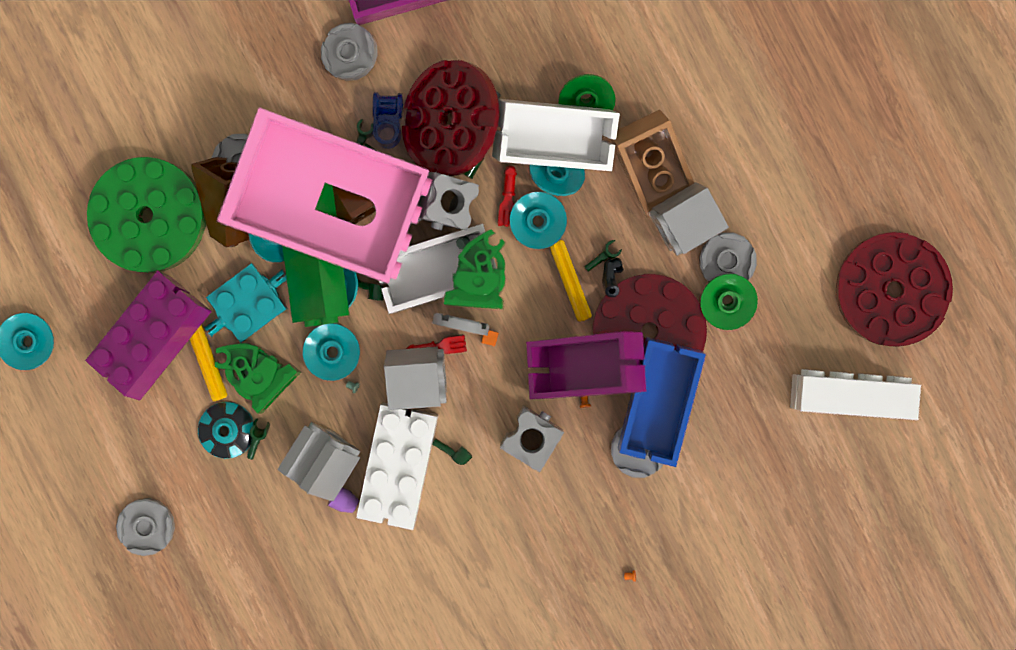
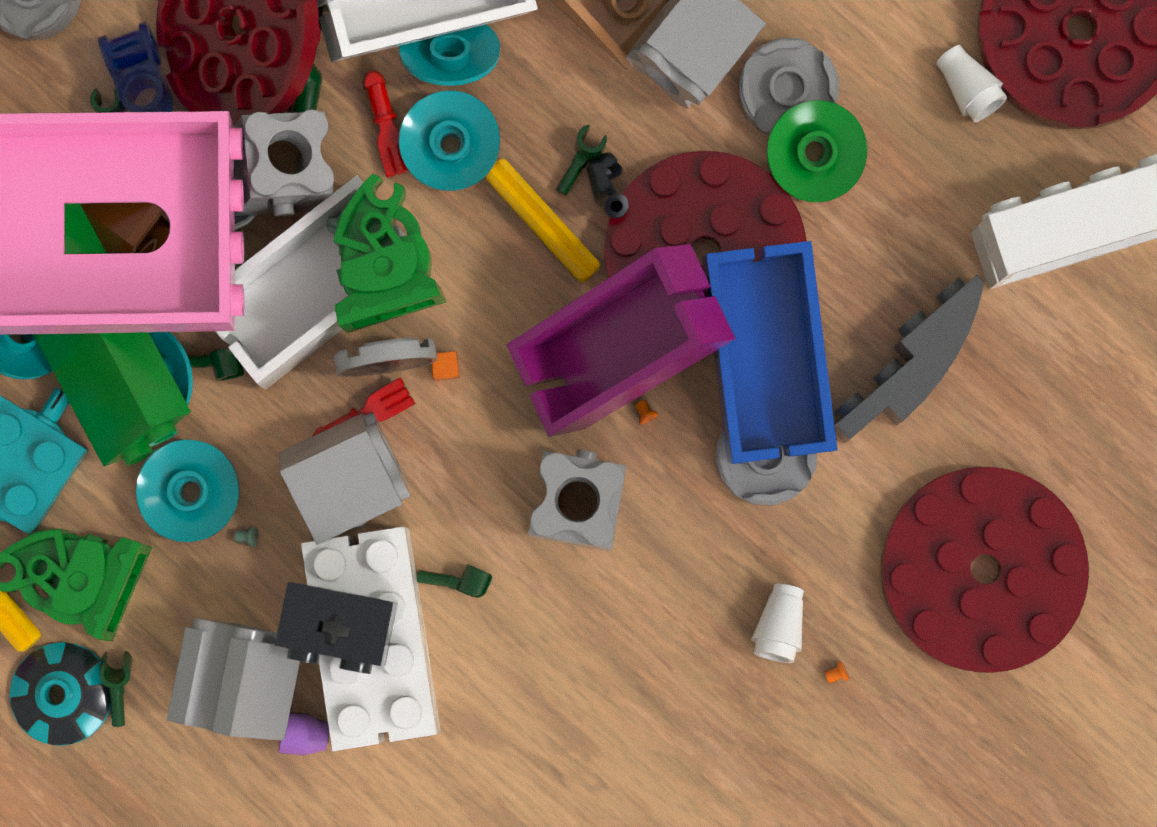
camera: 20 degrees left, 5 degrees down
(376, 442) = (310, 606): none -> black brick
(611, 540) = (780, 625): none -> white cone
(746, 428) = (929, 350): none -> dark grey slope
(749, 573) = (1037, 581): none -> dark red plate
(824, 297) = (973, 86): none -> white cone

